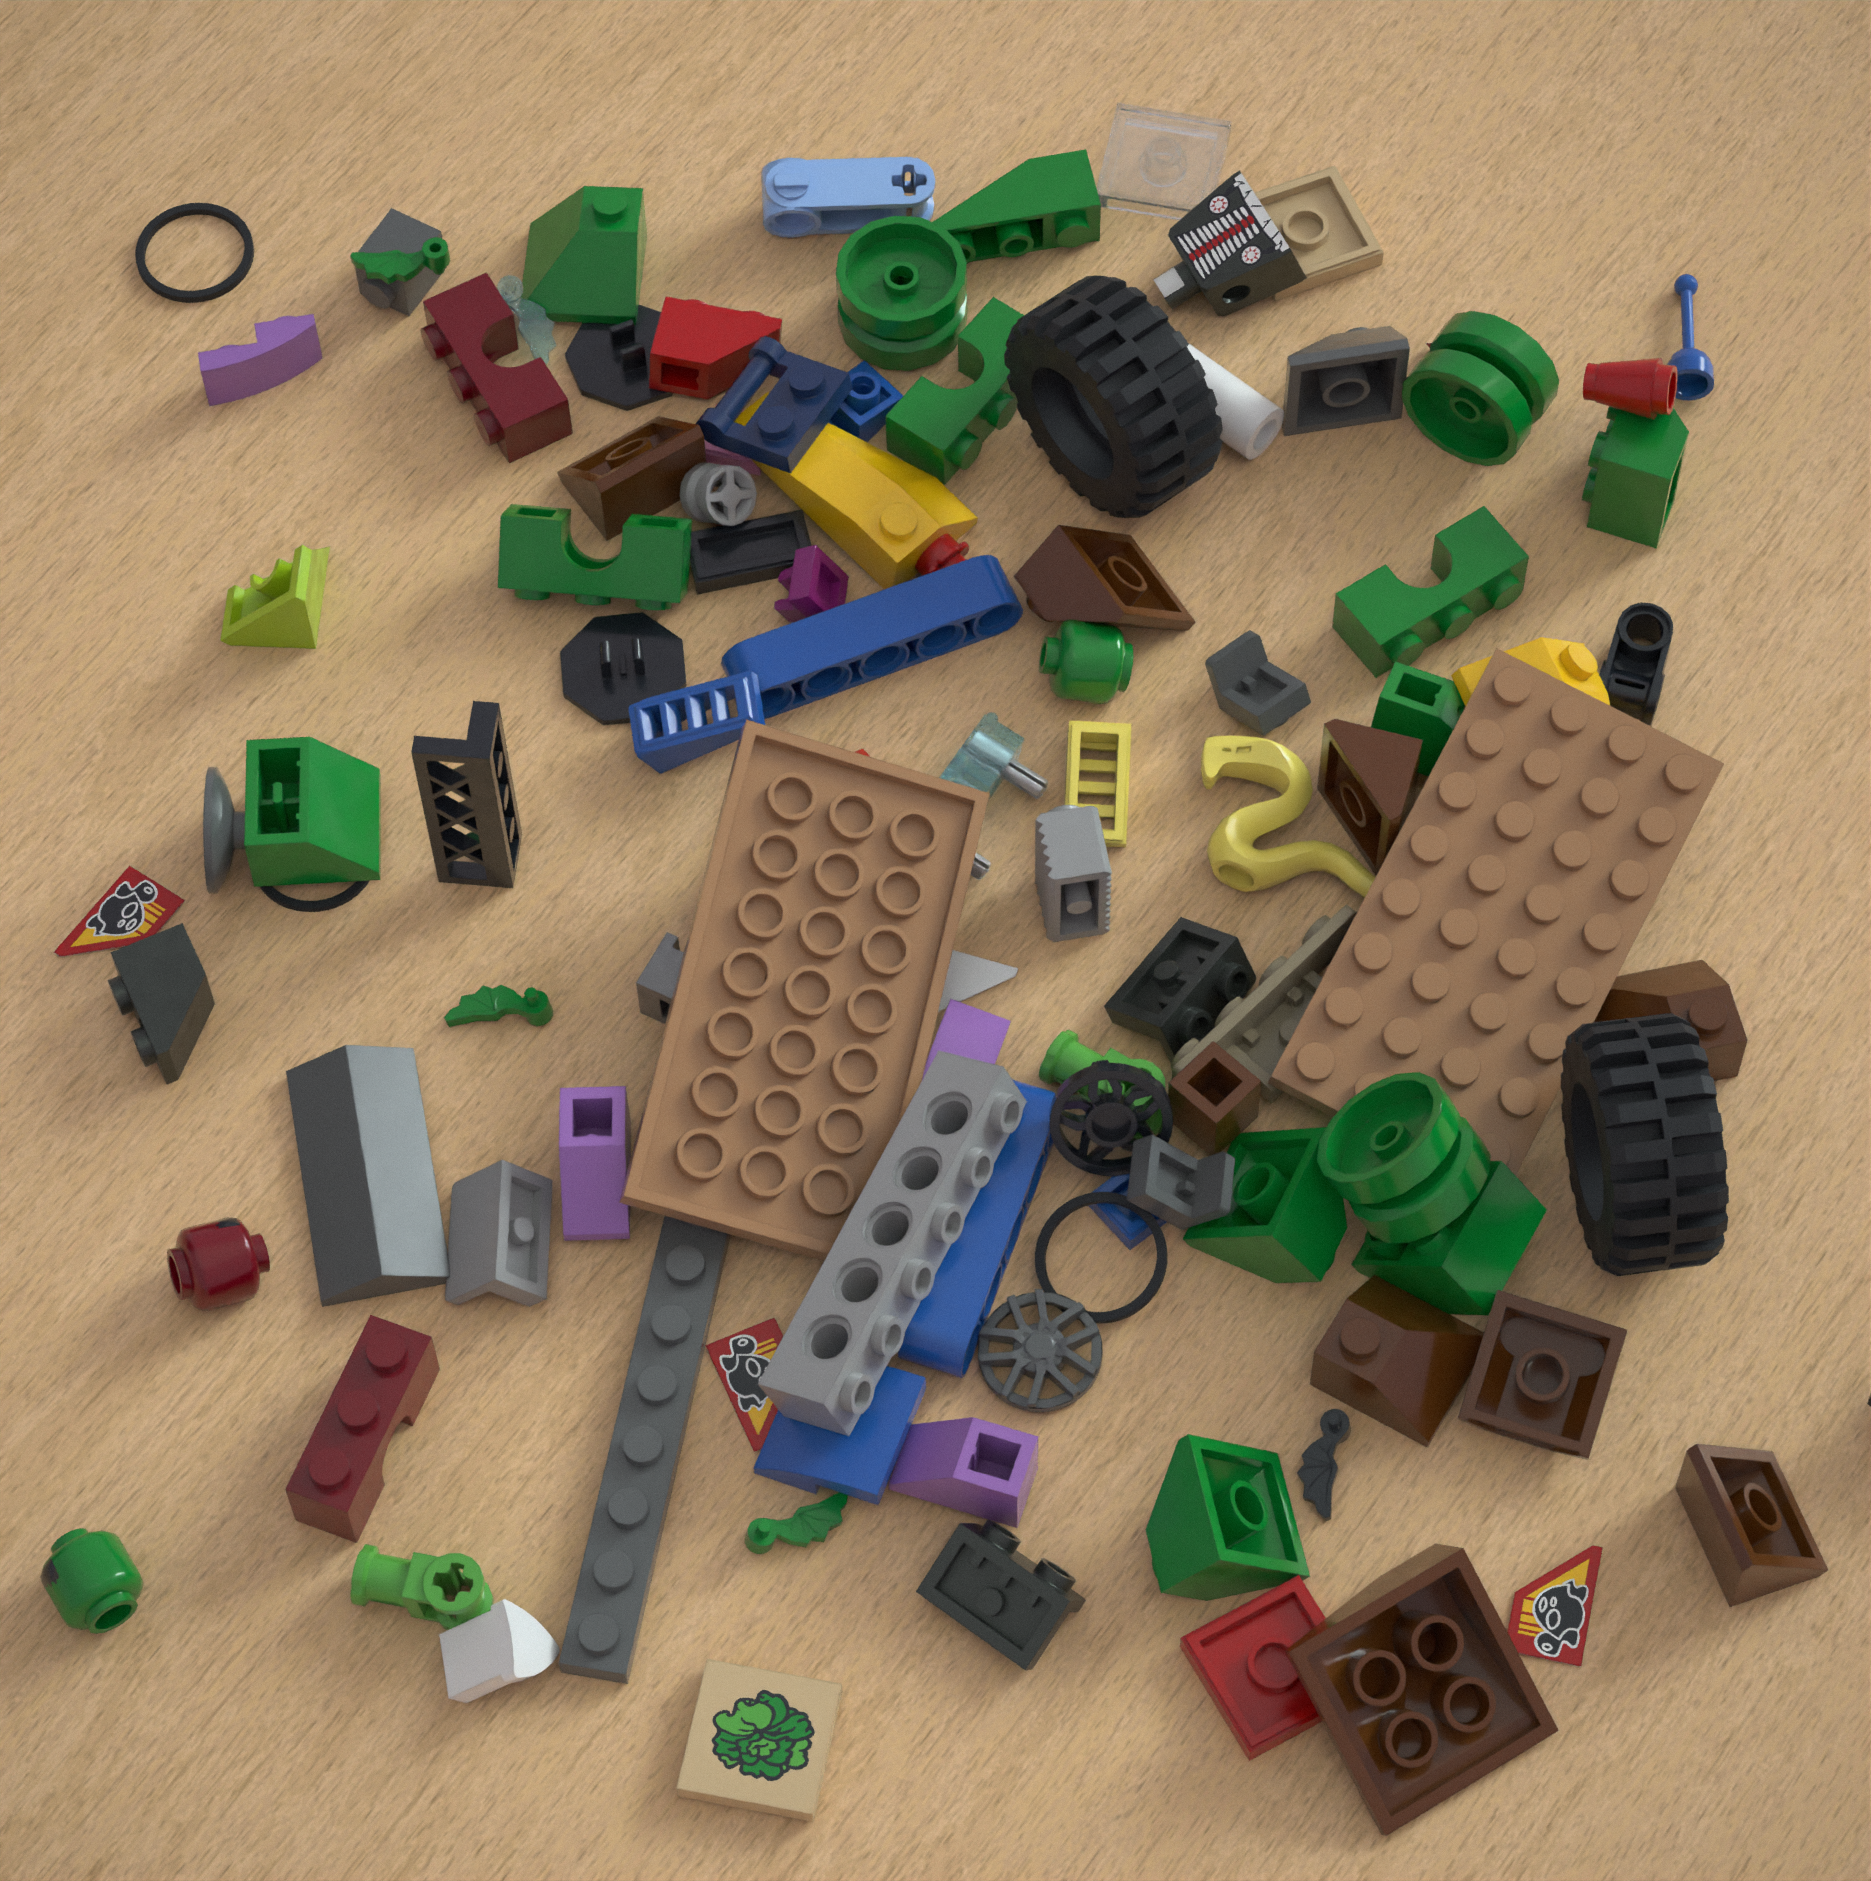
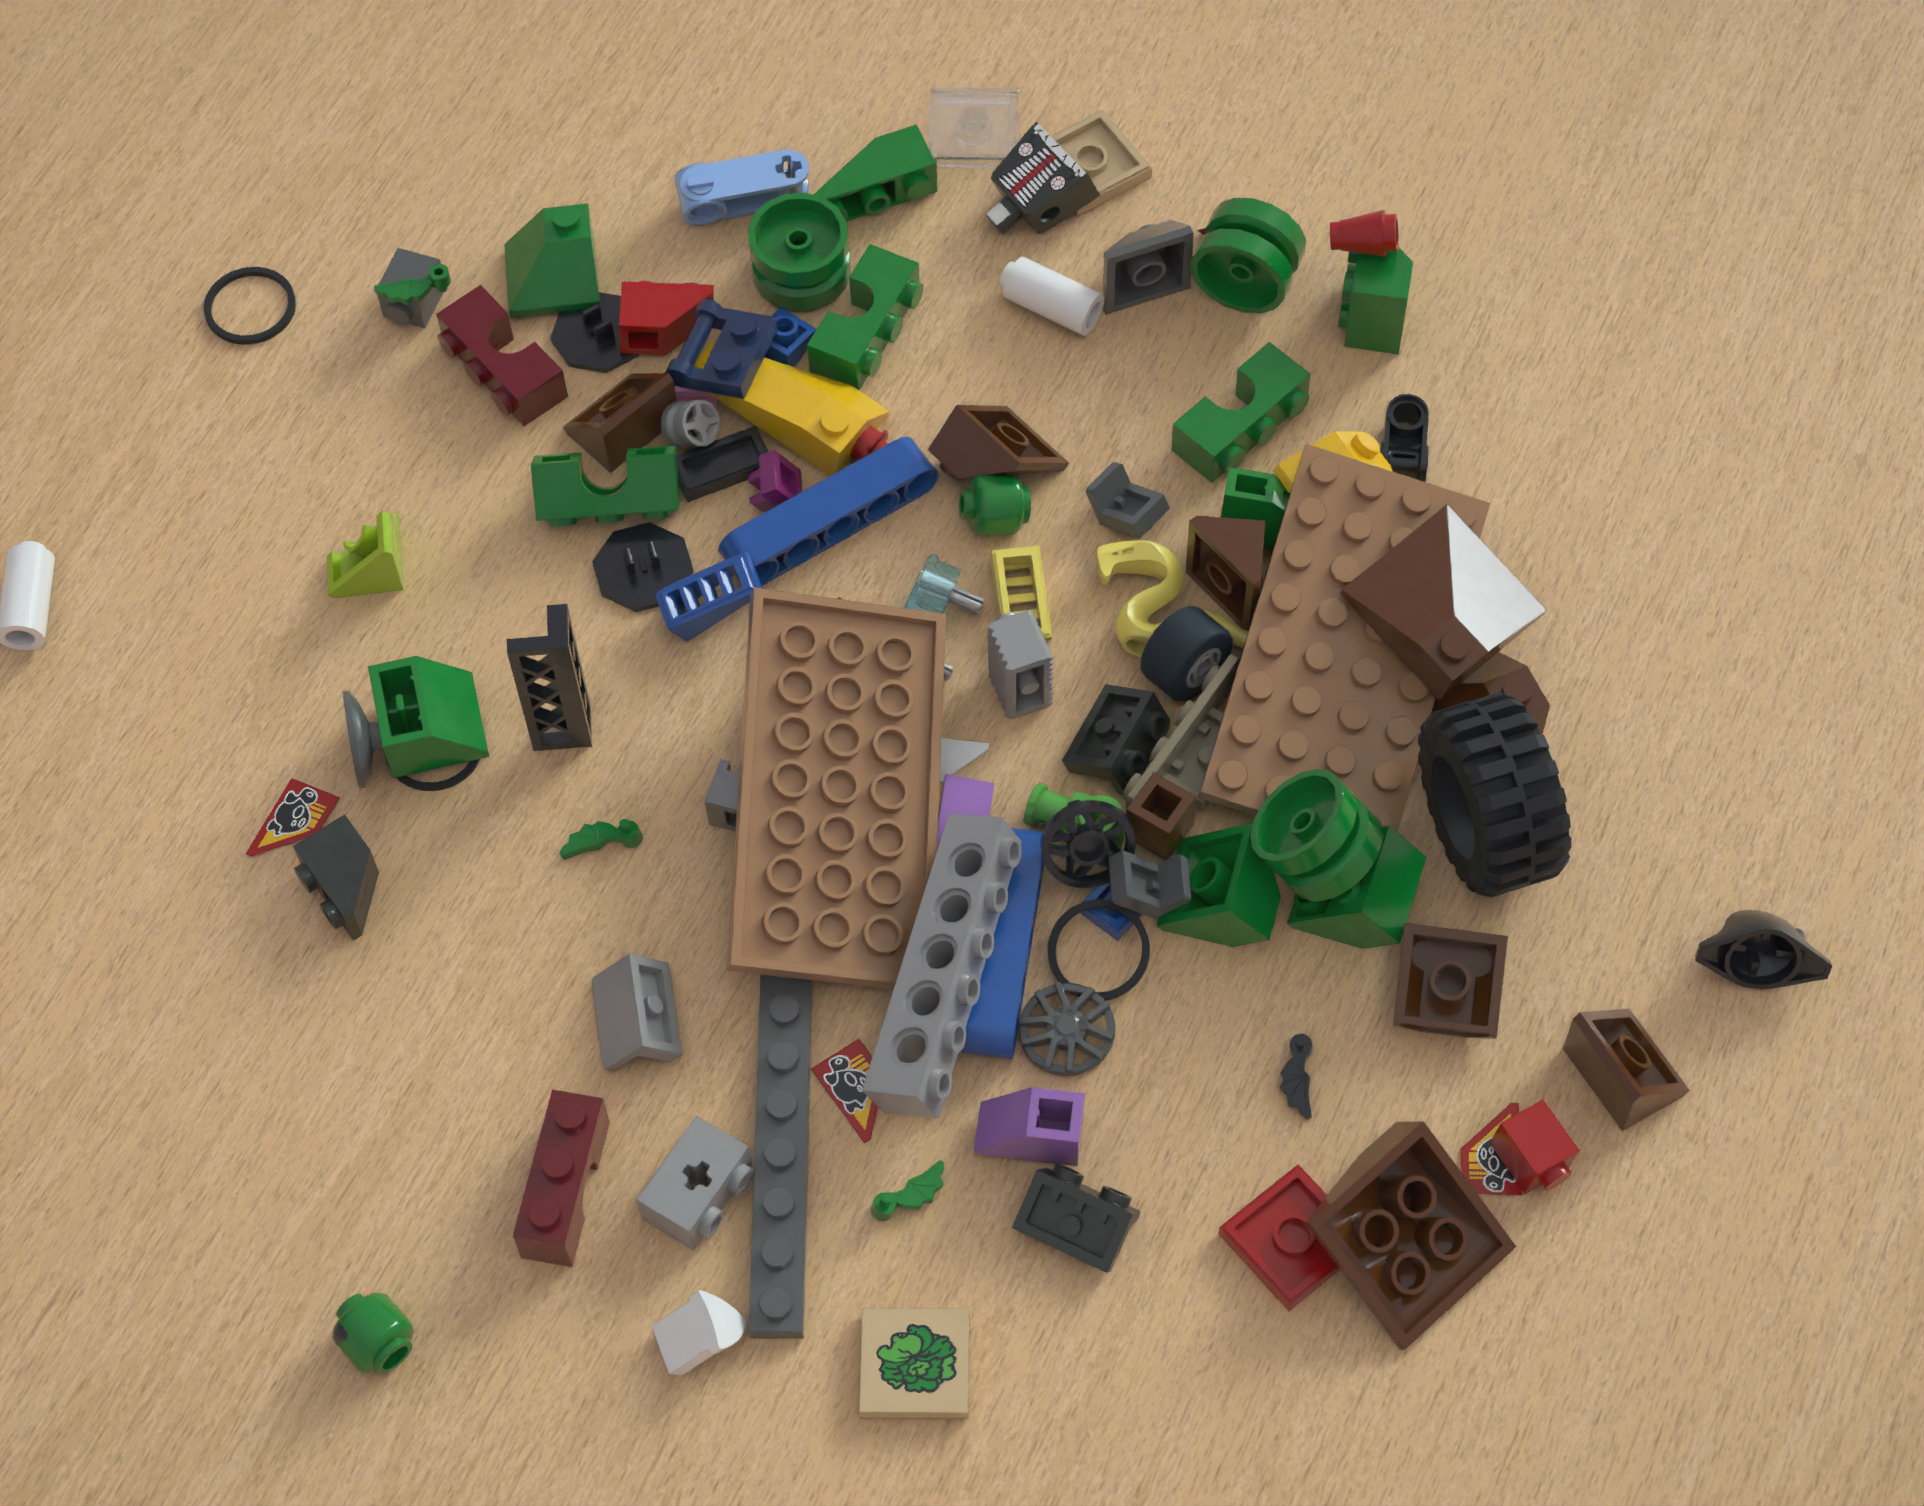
camera: 10 degrees left, 0 degrees up
(217, 1264) = (422, 1071): dark red head -> none
(281, 353) = (333, 370): medium lavender slope -> none
(367, 1173) = (524, 982): dark grey slope -> none
(422, 1585) = (632, 1290): bright green connector -> none
(533, 323) = (522, 317): clear light blue piece -> none
(536, 1433) = (698, 1156): none -> light grey brick
(594, 1162) = (700, 944): medium lavender slope -> none
(847, 1464) = (942, 1140): blue slope -> none
(1113, 396) = (979, 302): black tyre -> none
(1223, 1522) = (1234, 1134): green slope -> none
(1288, 891) = (1184, 652): none -> black wheel
(1396, 1359) = (1337, 988): reddish brown slope -> none
(1607, 1608) = (1535, 1148): none -> red brick
(1634, 883) = (1443, 602): none -> reddish brown slope
(1693, 366) = (1406, 219): blue hinge -> none

